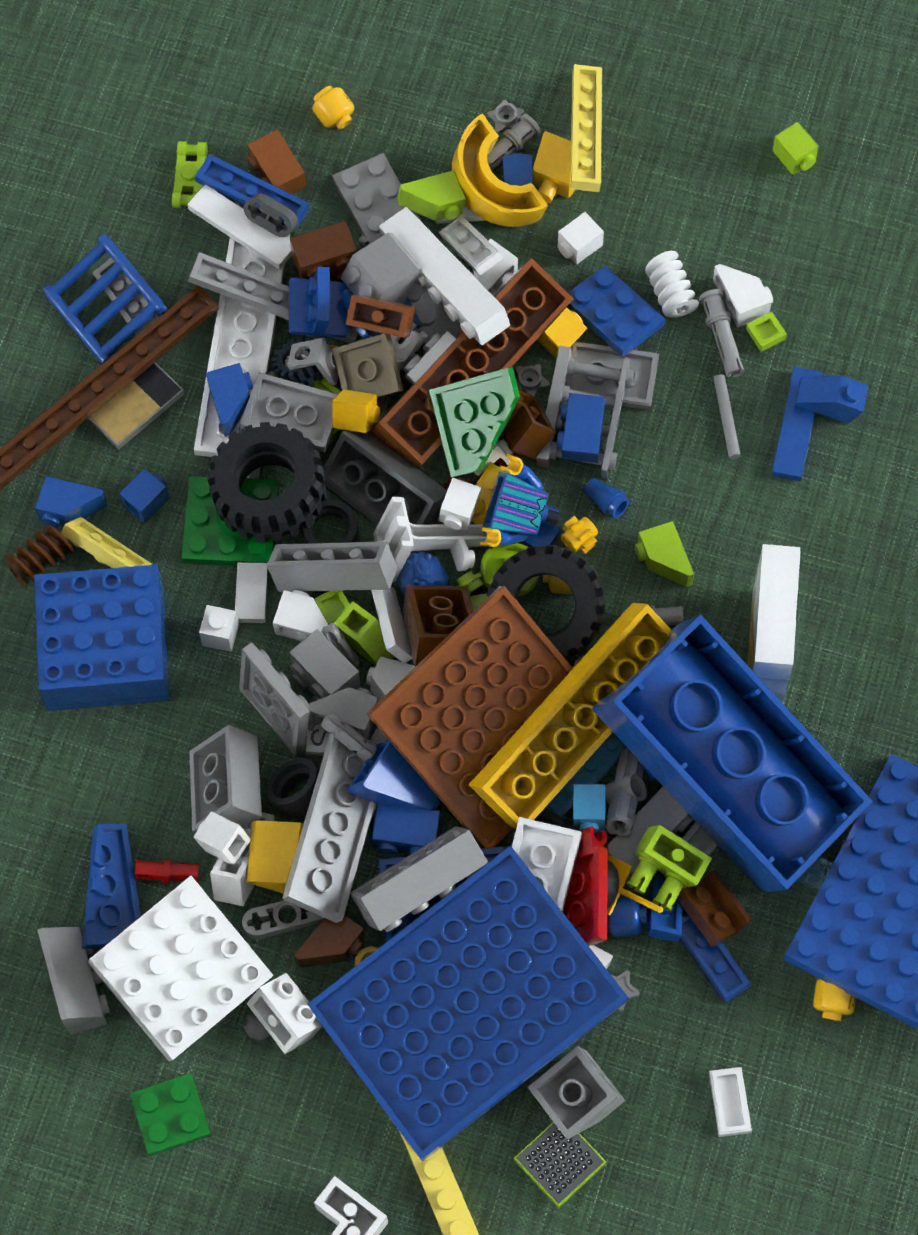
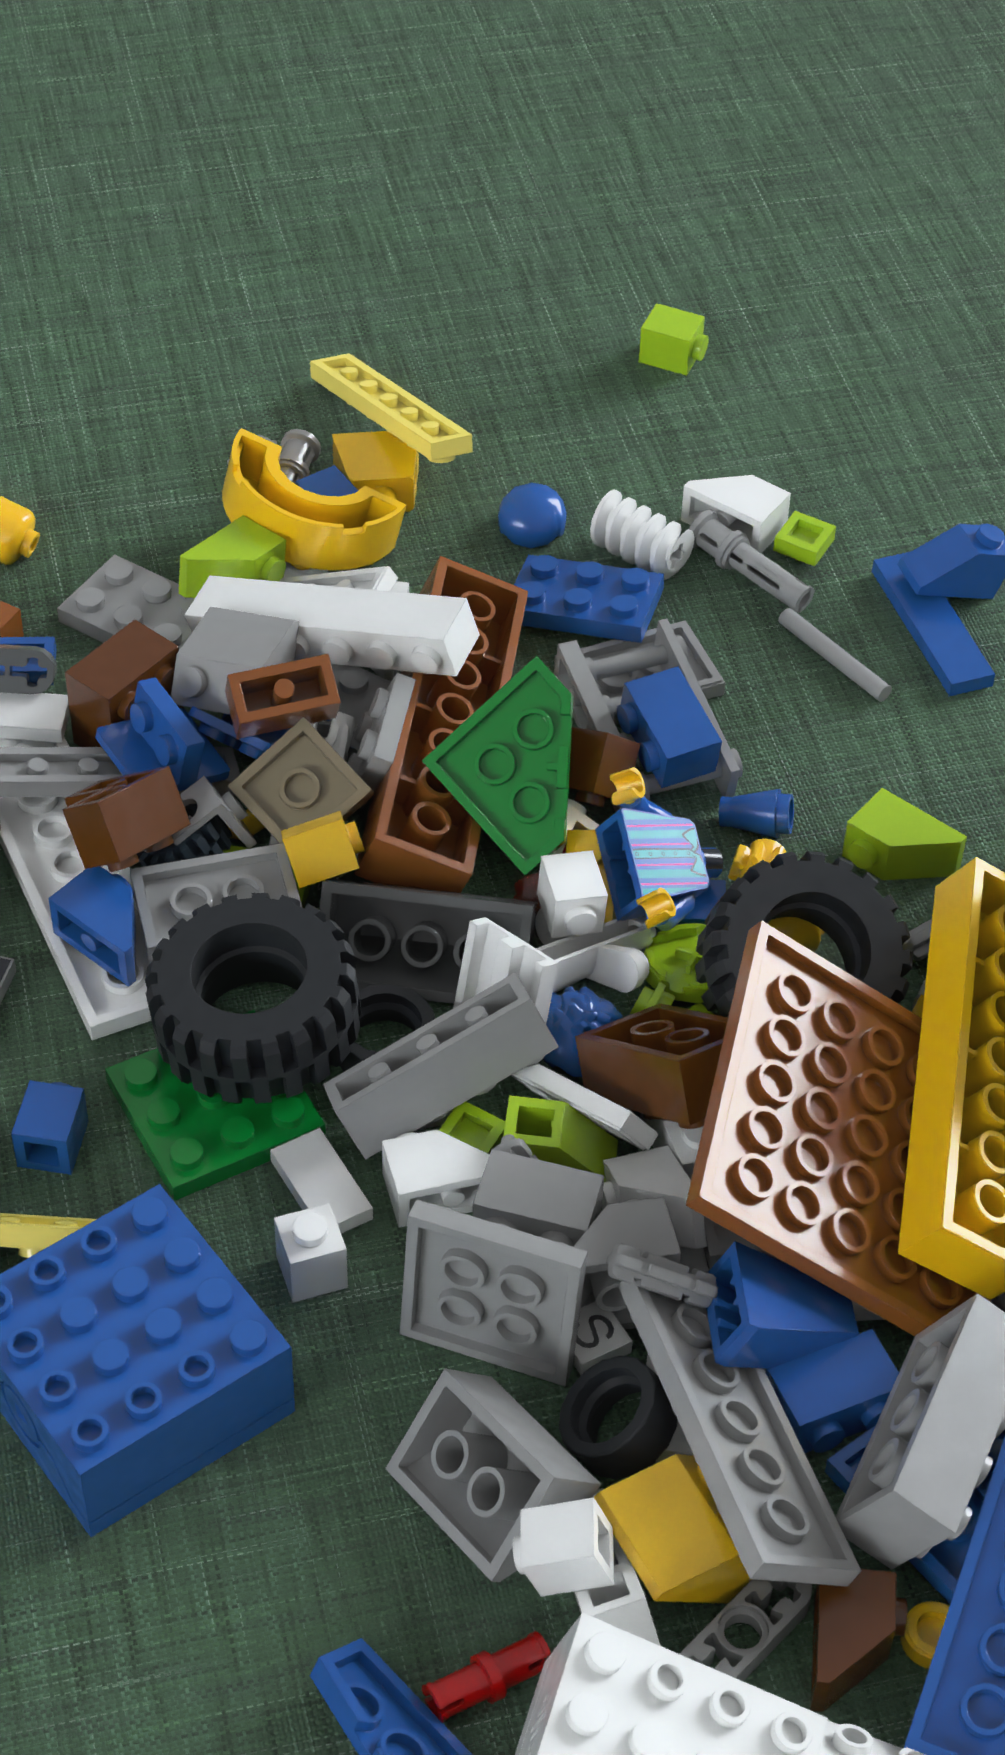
camera: 35 degrees left, 20 degrees down
(263, 345) = (125, 817): none -> reddish brown brick
(562, 331) = (540, 637): yellow brick -> none
(580, 238) = (473, 534): white brick -> none
(626, 238) = (532, 515): none -> blue hair

